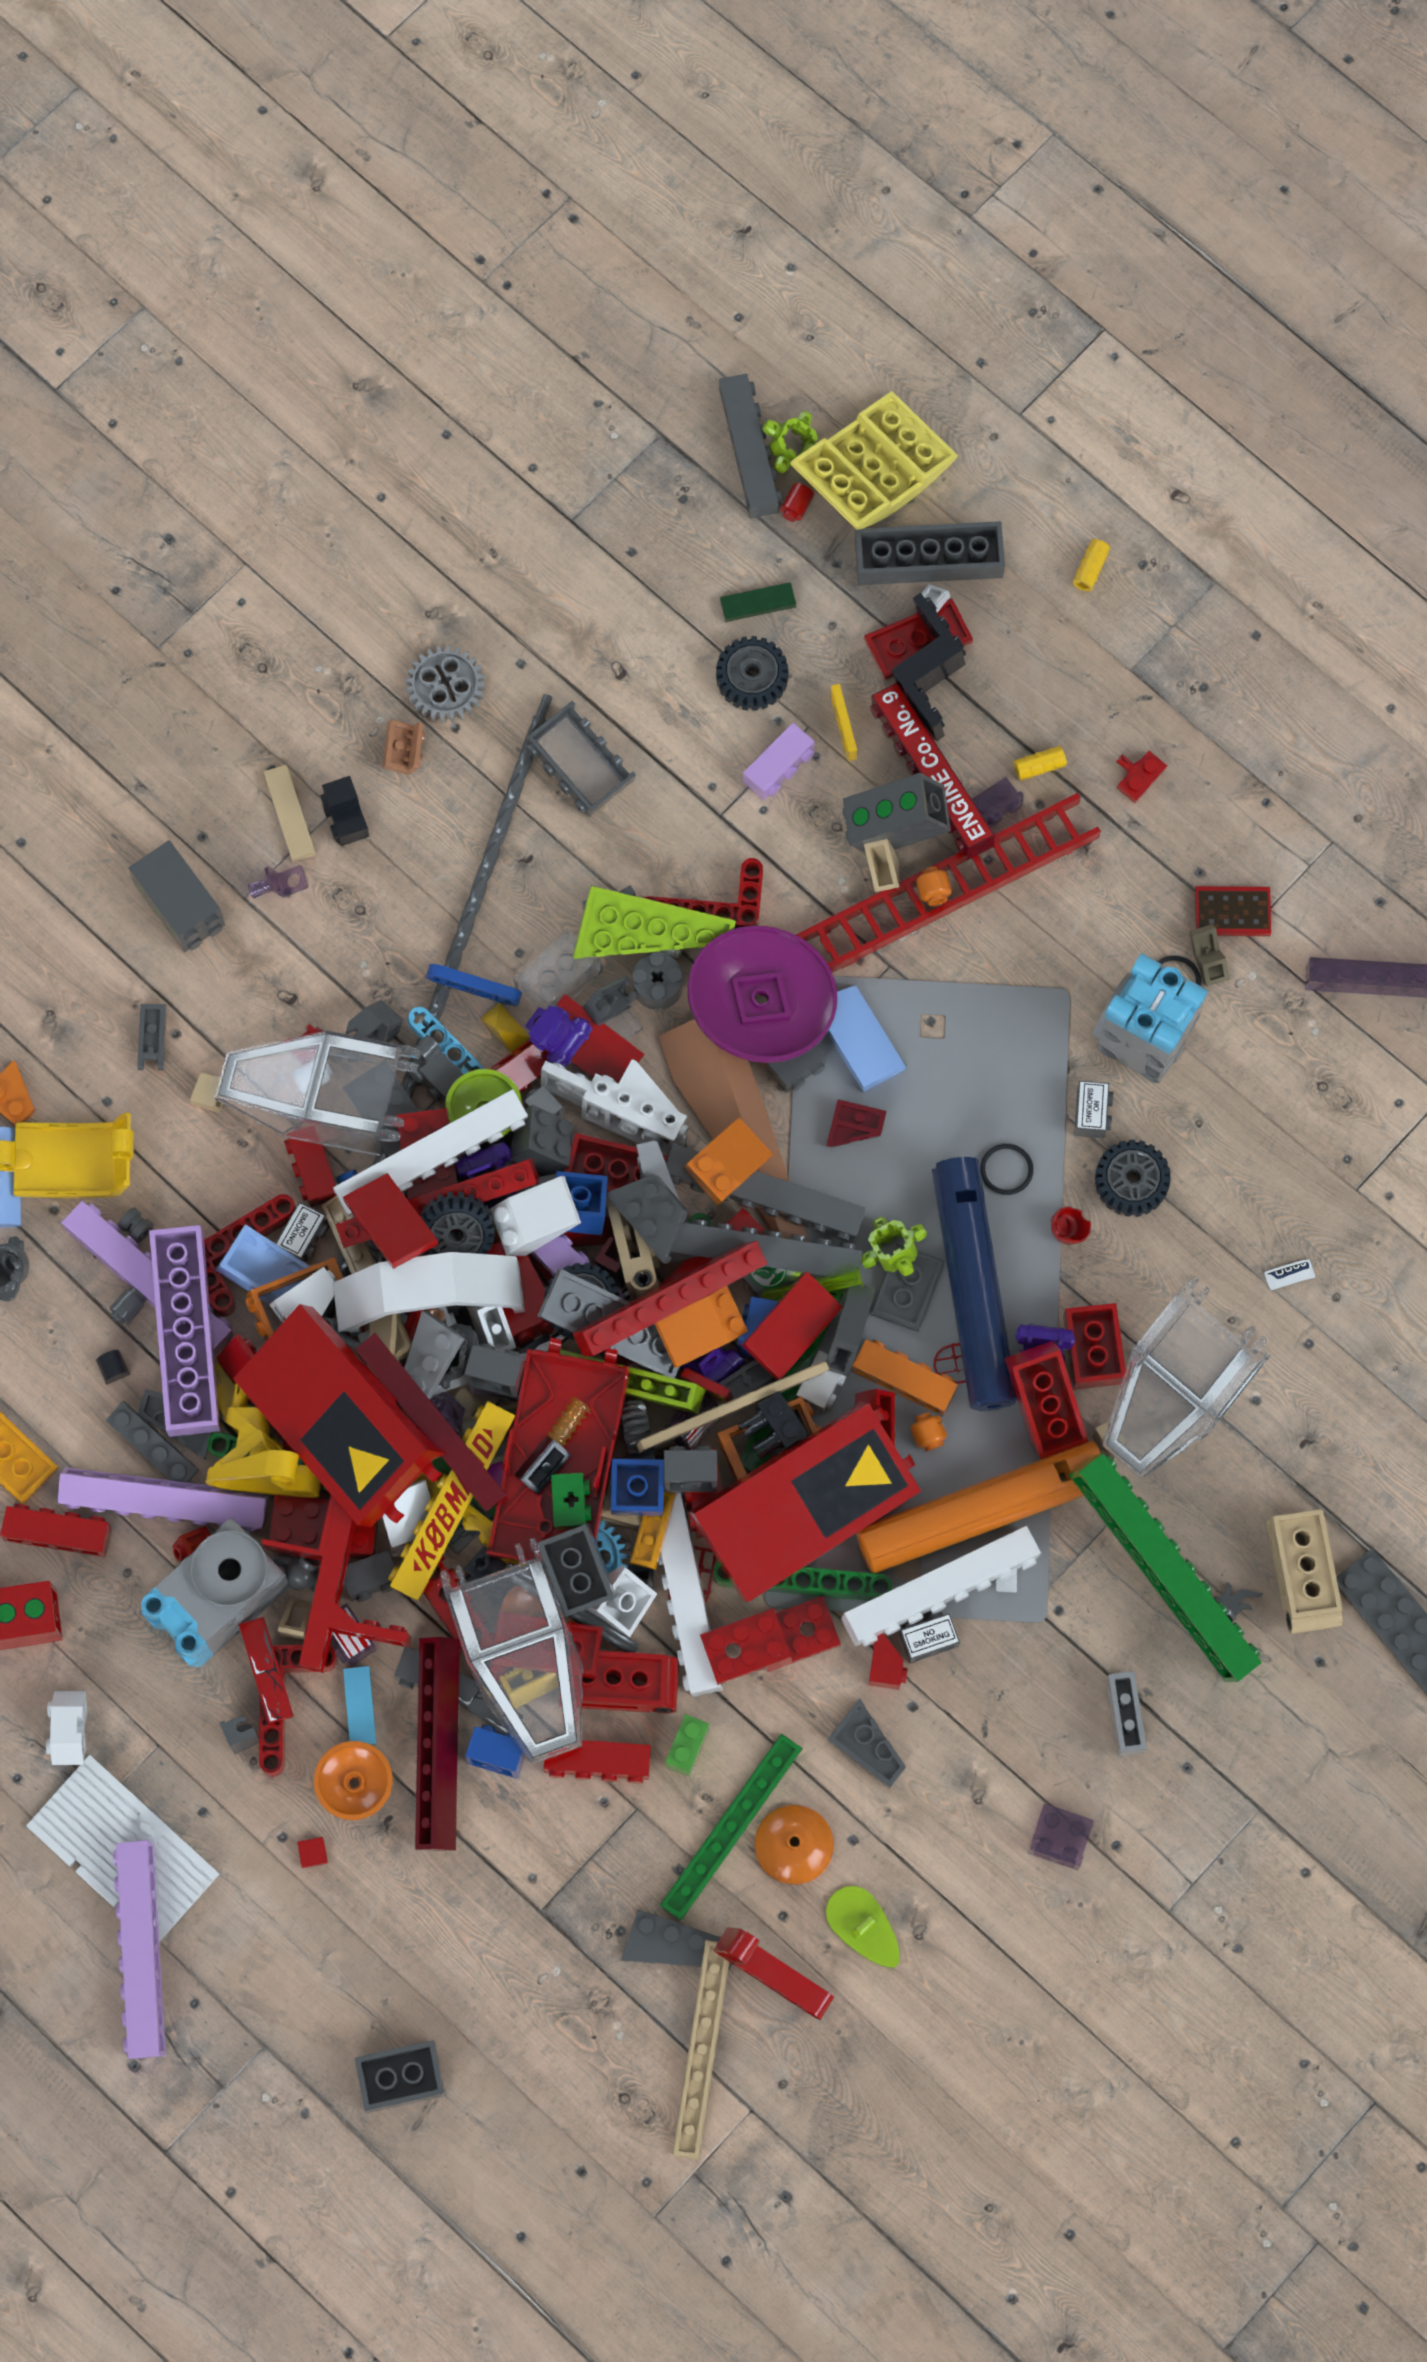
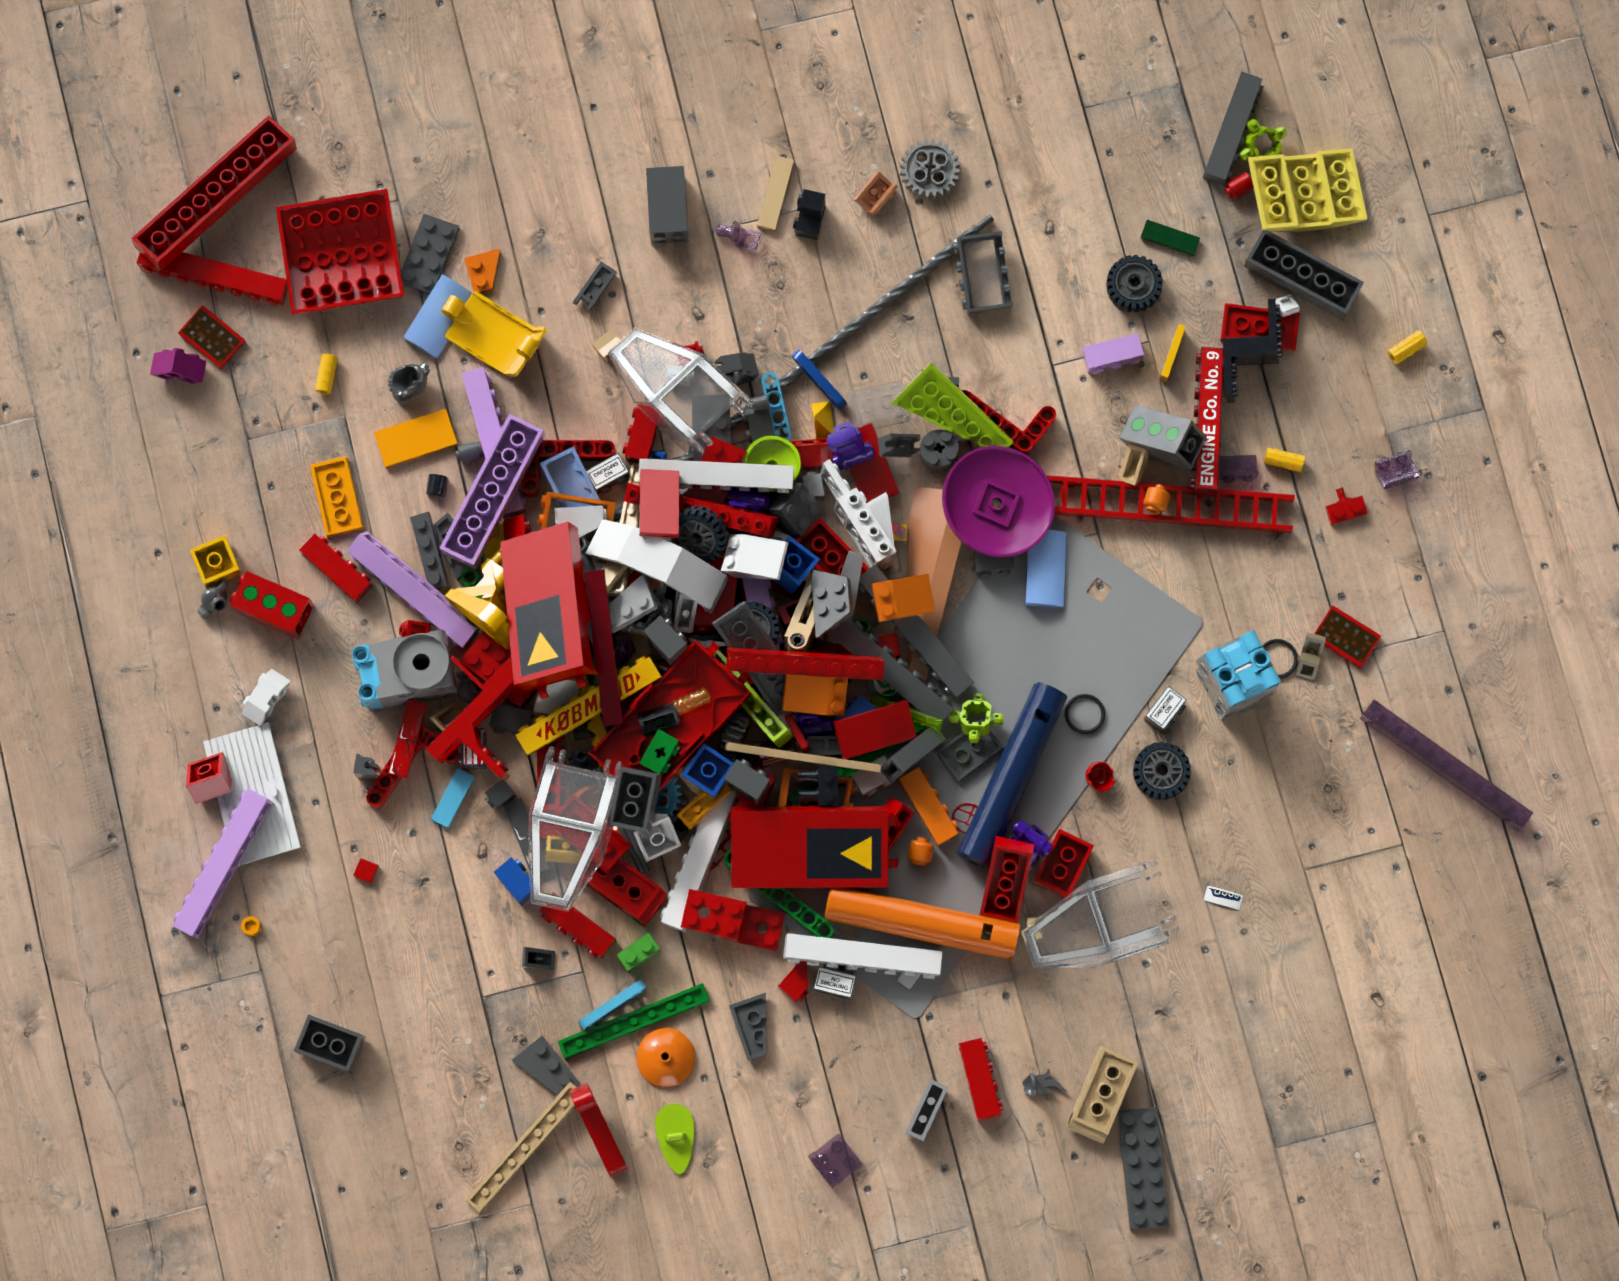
camera: 35 degrees right, 5 degrees up
(53, 1329) = (415, 438): none -> light orange tile
(60, 1862) = (208, 778): none -> red slope
(135, 1225) = (507, 403): dark grey wheel -> none
(219, 2001) = (251, 926): none -> light orange tile
(349, 1762) = (417, 828): orange dish -> none
(437, 1744) = (483, 853): dark red brick -> none
(577, 1826) = (538, 959): none -> dark grey slope
(675, 1096) = (900, 532): none -> tile
(695, 1823) = (612, 1004): none -> medium azure beam
(854, 1123) = (1005, 622): dark red wing -> none
(1160, 1641) = (979, 1079): none -> red brick
(1165, 1568) = (1010, 1036): green brick -> none
(1167, 701) = (1396, 470): none -> clear purple bracket

